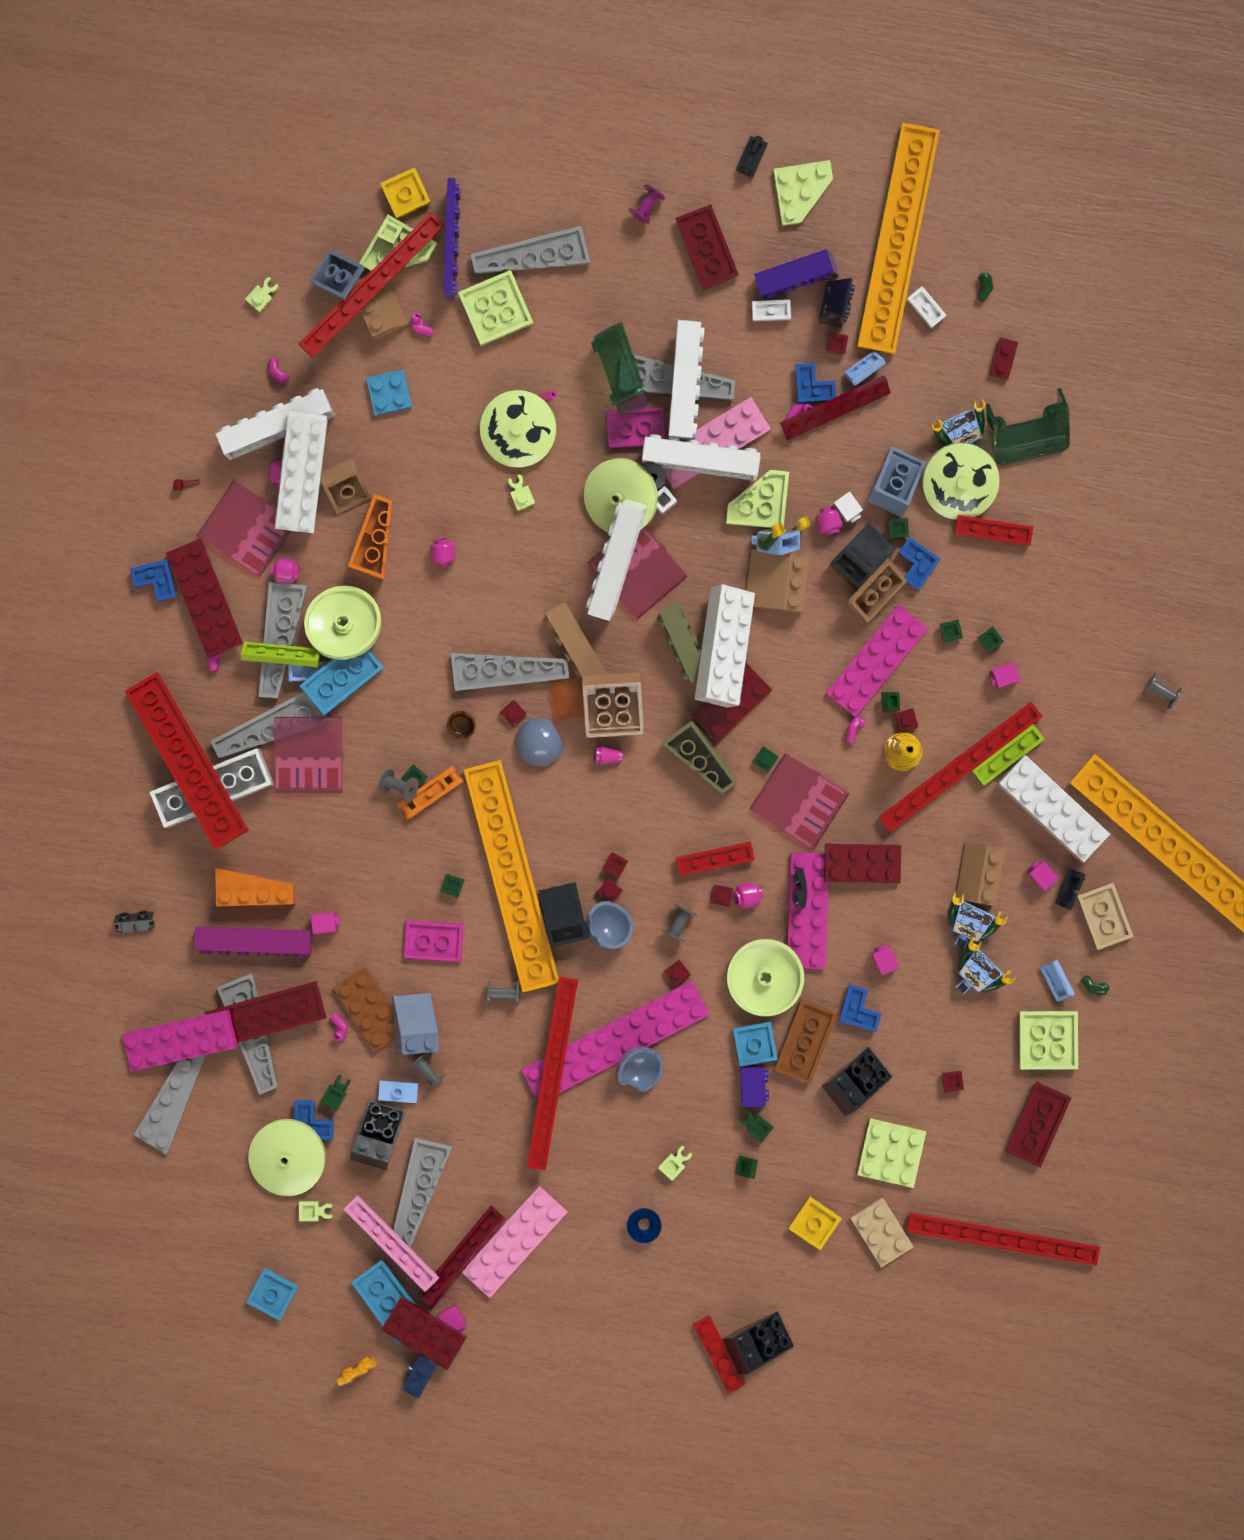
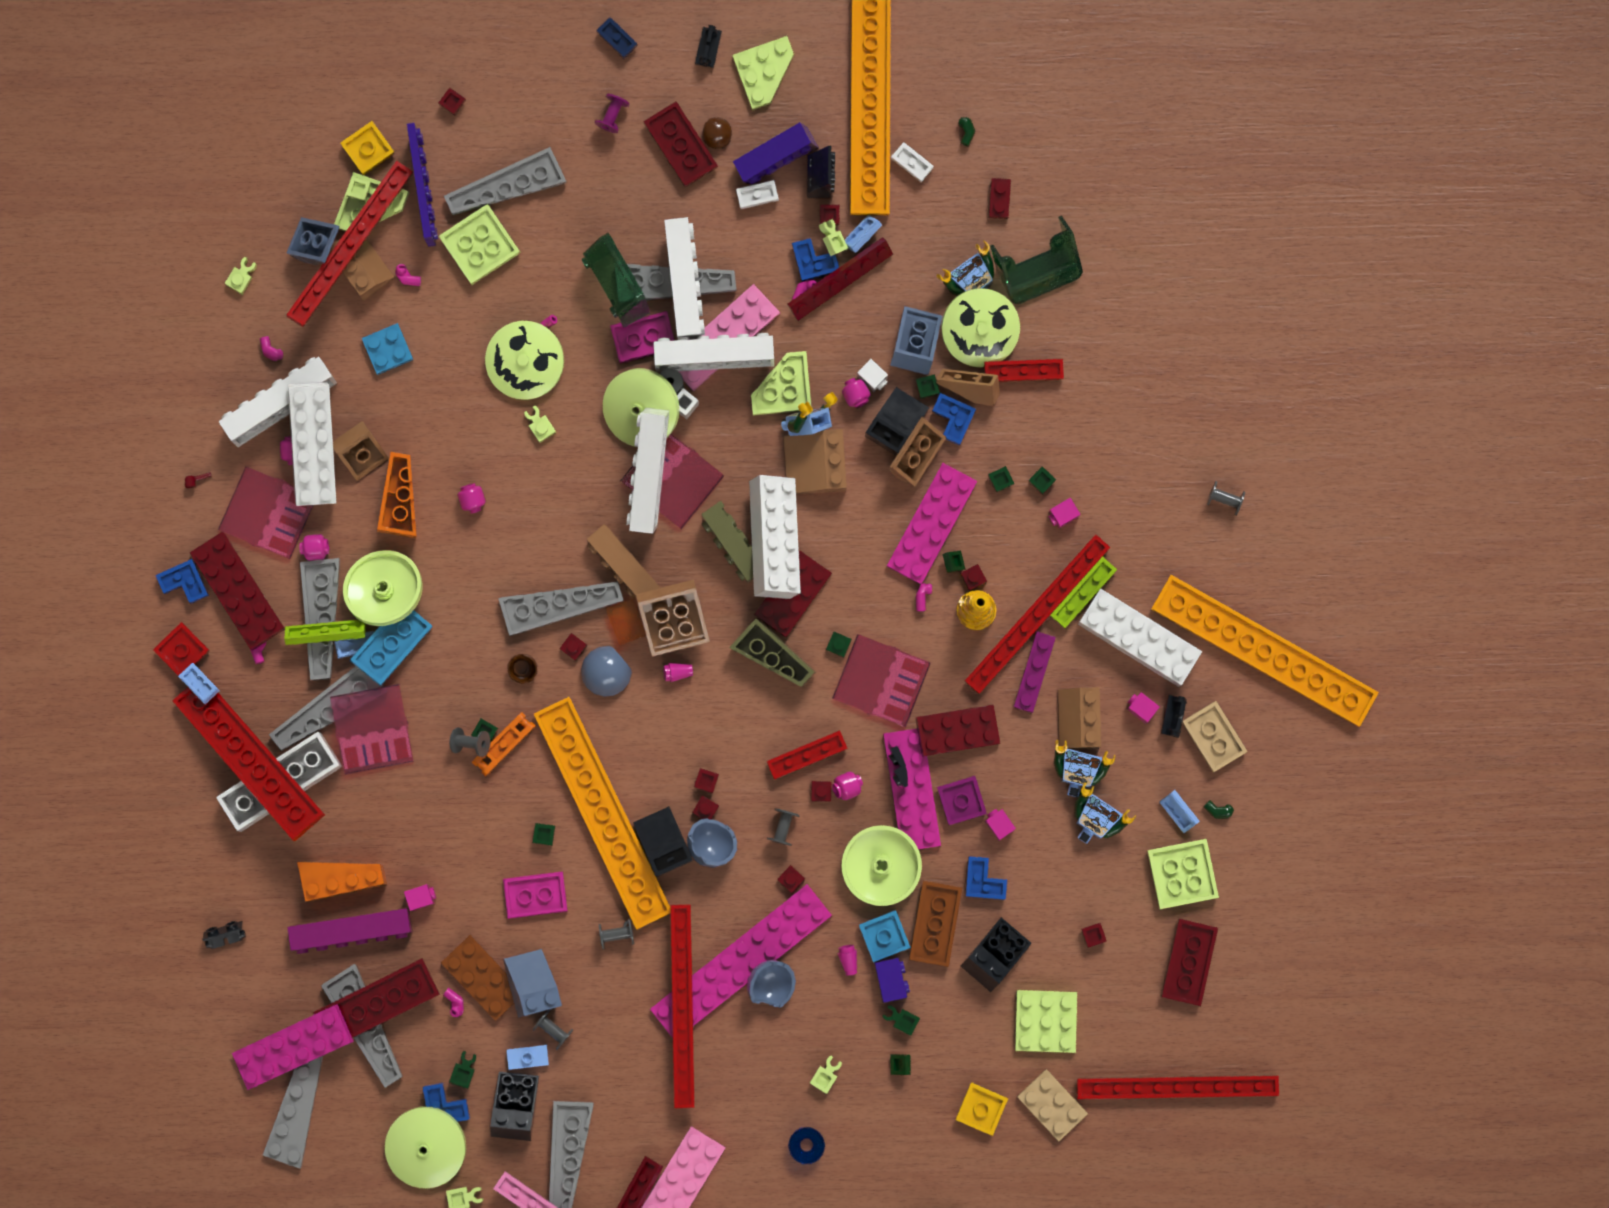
camera: 15 degrees left, 5 degrees down
(141, 644) = (181, 649): none -> red plate
(152, 680) = (198, 683): none -> light blue plate
(495, 163) = (452, 101): none -> dark red plate
(665, 130) = (617, 38): none -> dark blue plate
(717, 1058) = (848, 959): none -> dark pink cone
(744, 242) = (717, 133): none -> reddish brown hair
(836, 370) = (834, 240): none -> yellowish green plate
(853, 930) = (961, 800): none -> magenta plate
(940, 535) = (974, 386): none -> medium nougat slope
(946, 821) = (1034, 672): none -> magenta plate

